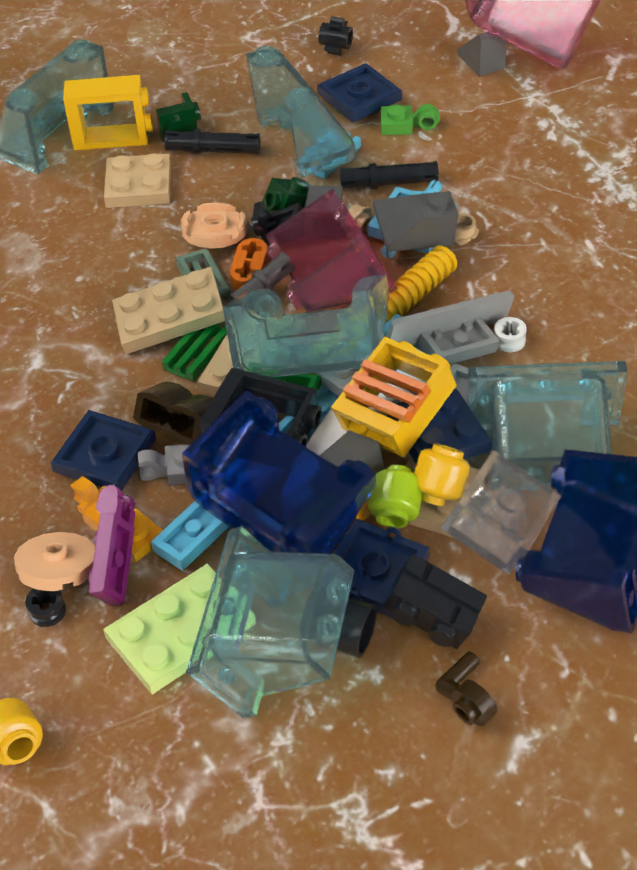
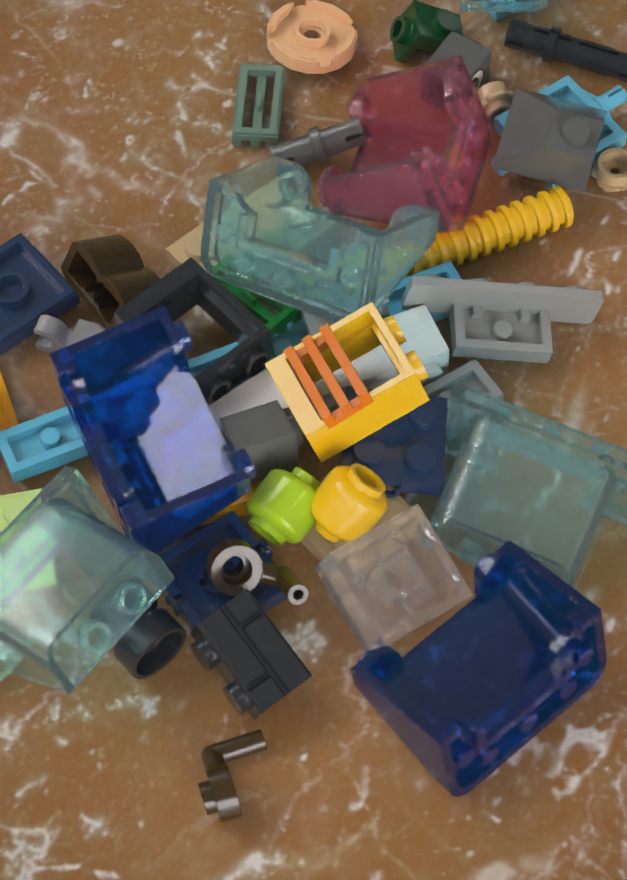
camera: 25 degrees right, 10 degrees up
(168, 310) = (186, 135): tan plate -> none
(191, 347) = (178, 199): green tile -> none
(244, 264) = (315, 105): orange beam -> none
(264, 222) = (375, 58): black bracket -> none
(399, 546) = (251, 572): none -> dark brown plate
(510, 326) = (569, 359): white bush -> none

